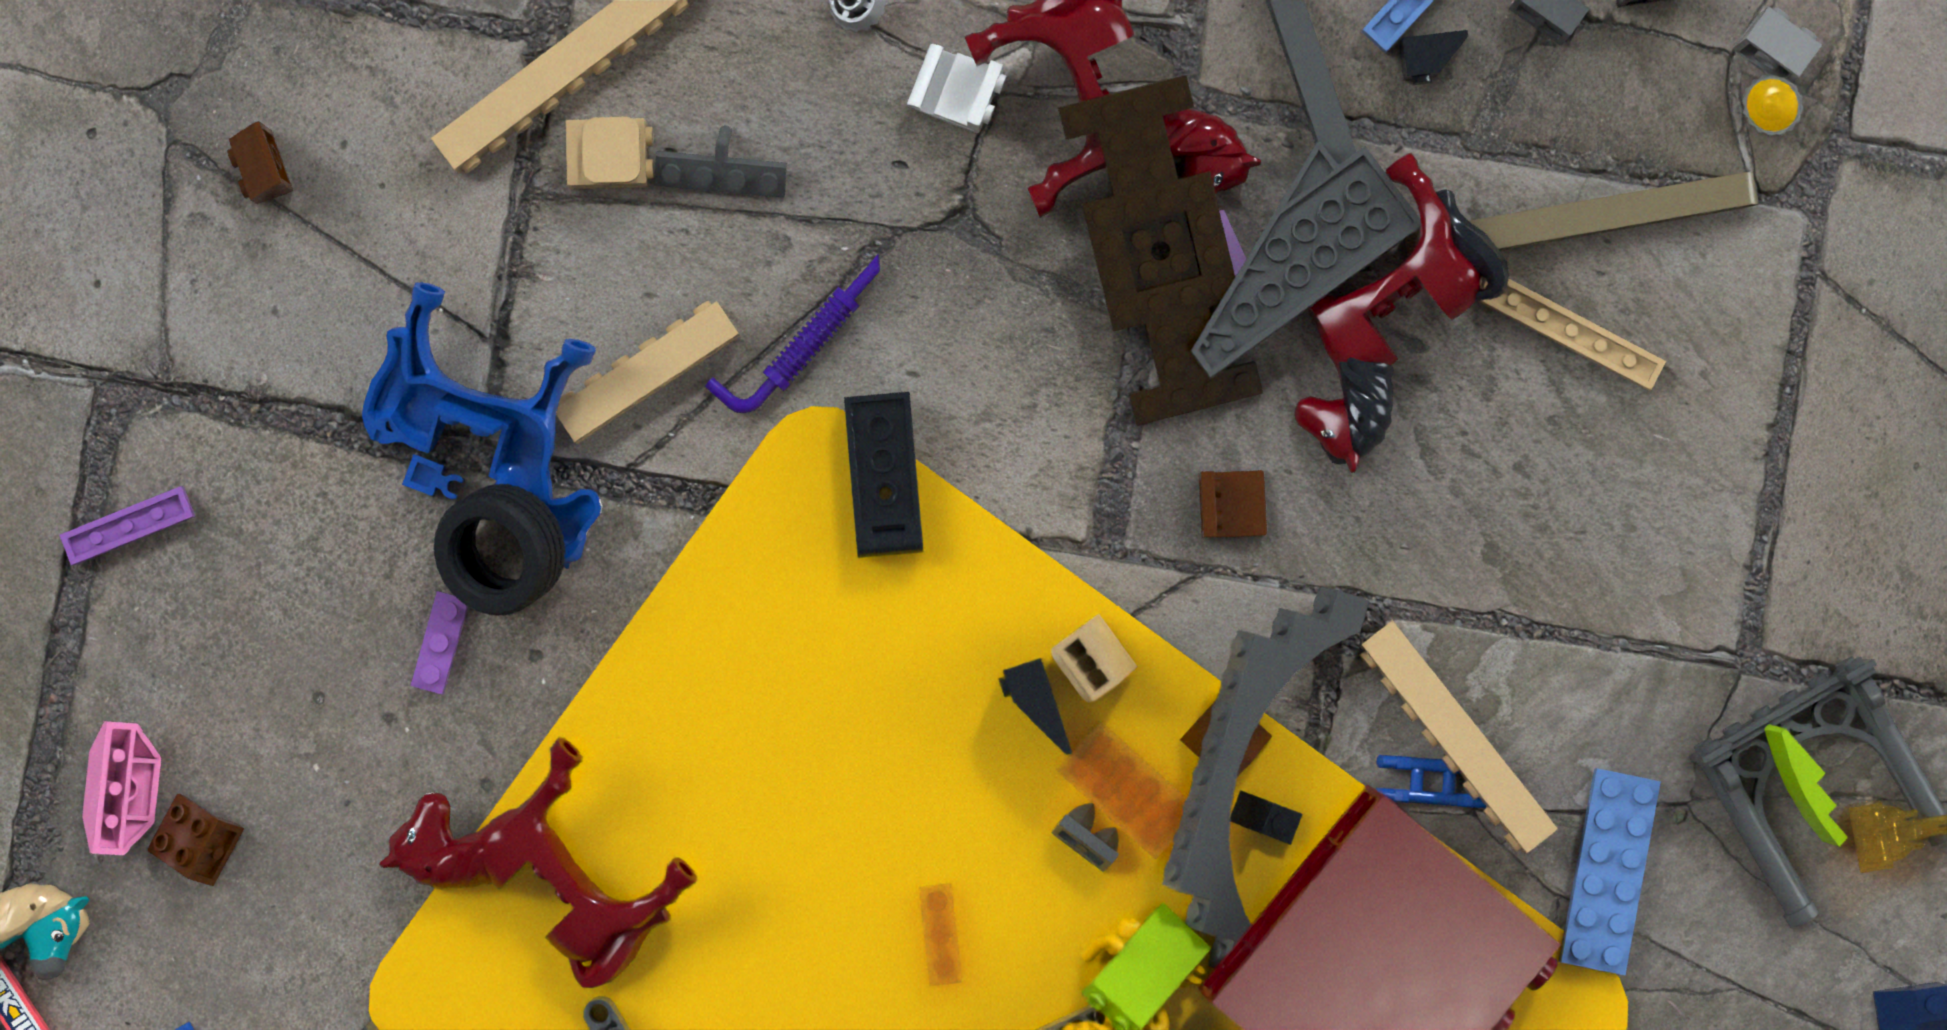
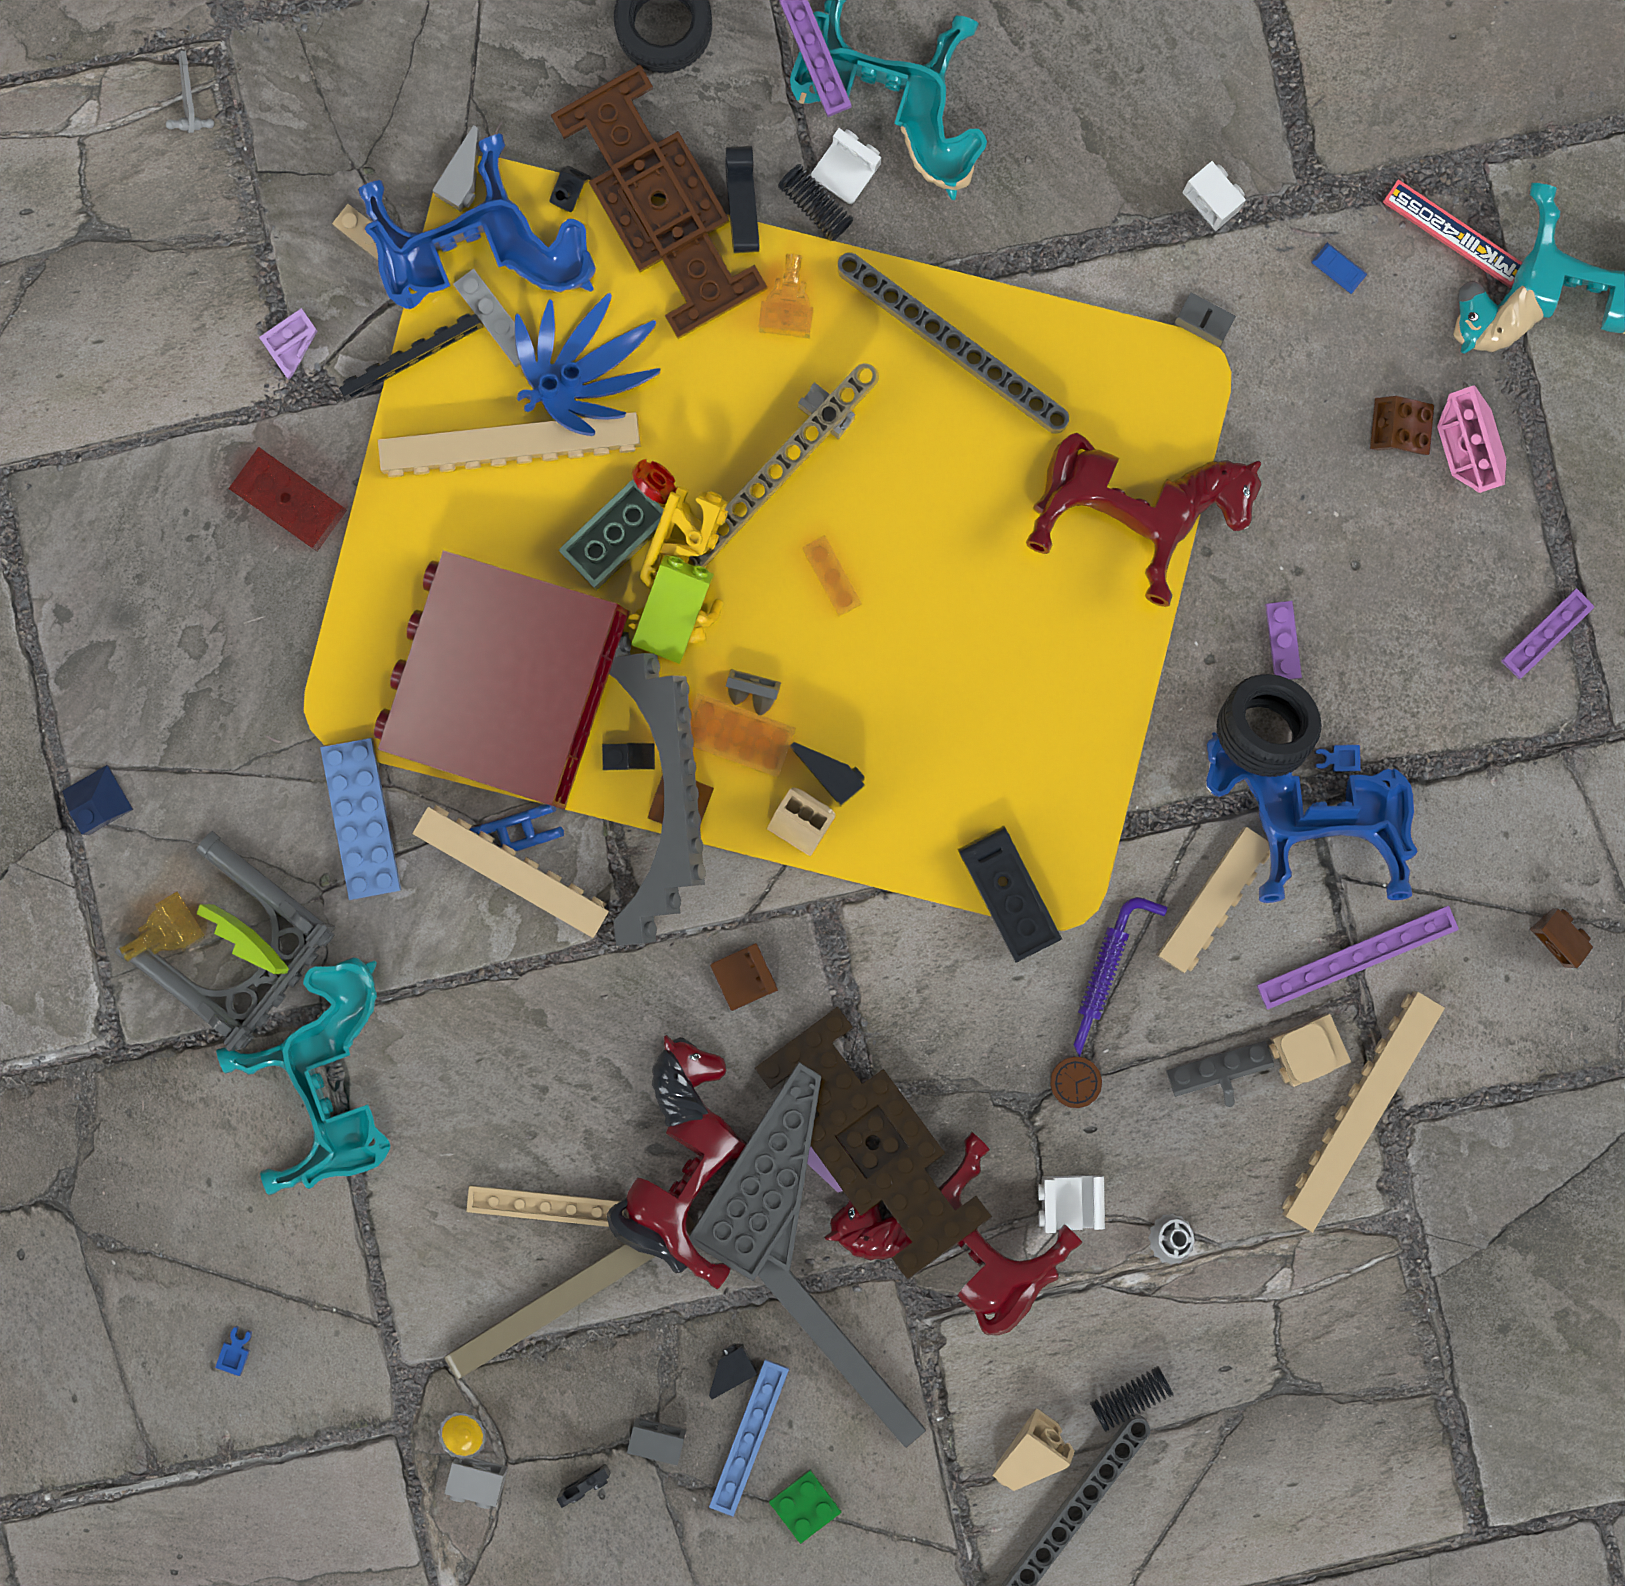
camera: 165 degrees right, 0 degrees up
(507, 238) = (1357, 957): none -> medium lavender plate
(894, 226) = (1076, 1082): none -> reddish brown tile
(1780, 503) = (338, 1141): none -> teal animal

